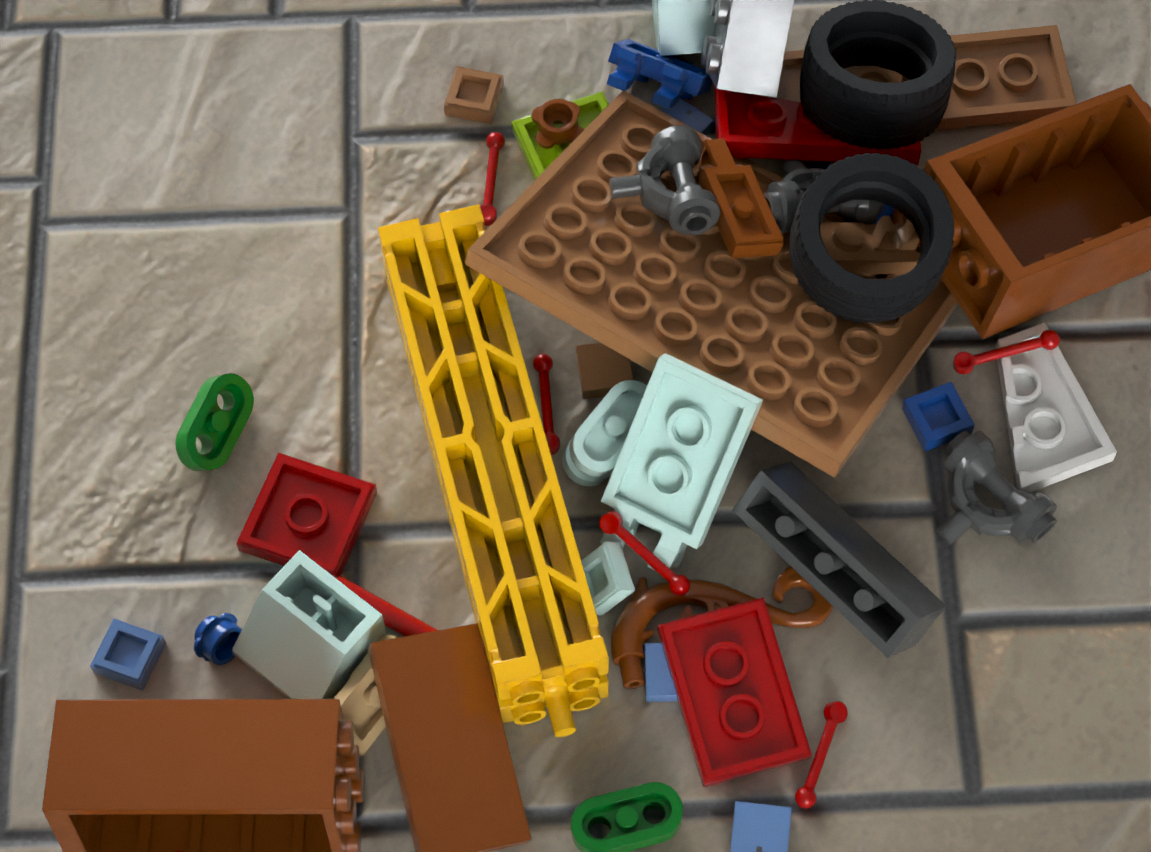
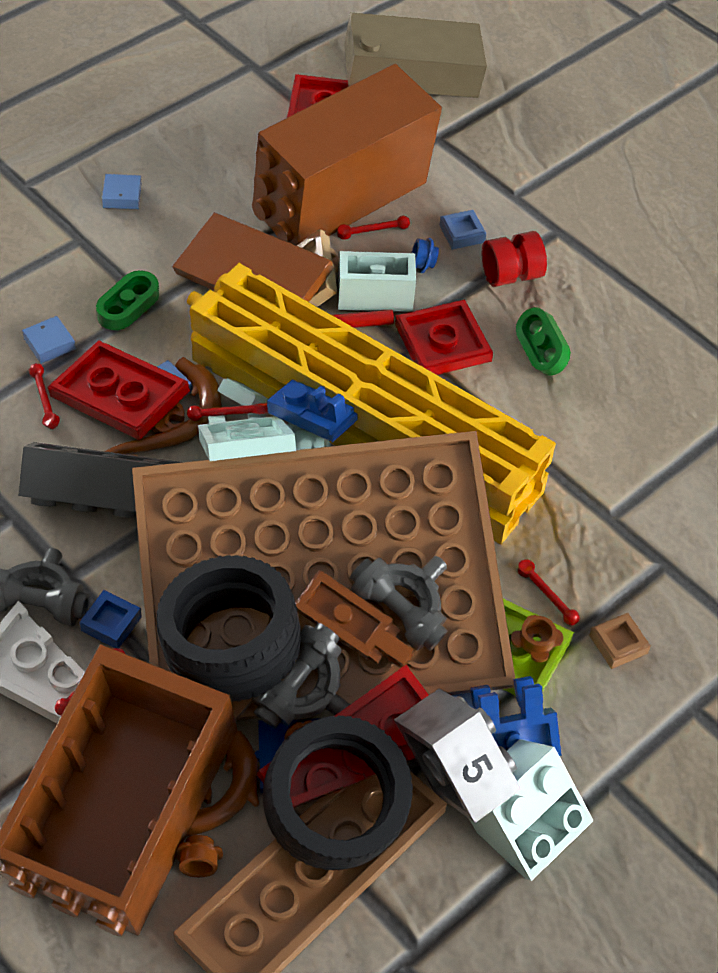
camera: 135 degrees right, 10 degrees down
(126, 540) = (508, 259): none -> red wheel
(577, 449) = (312, 410): none -> blue plate

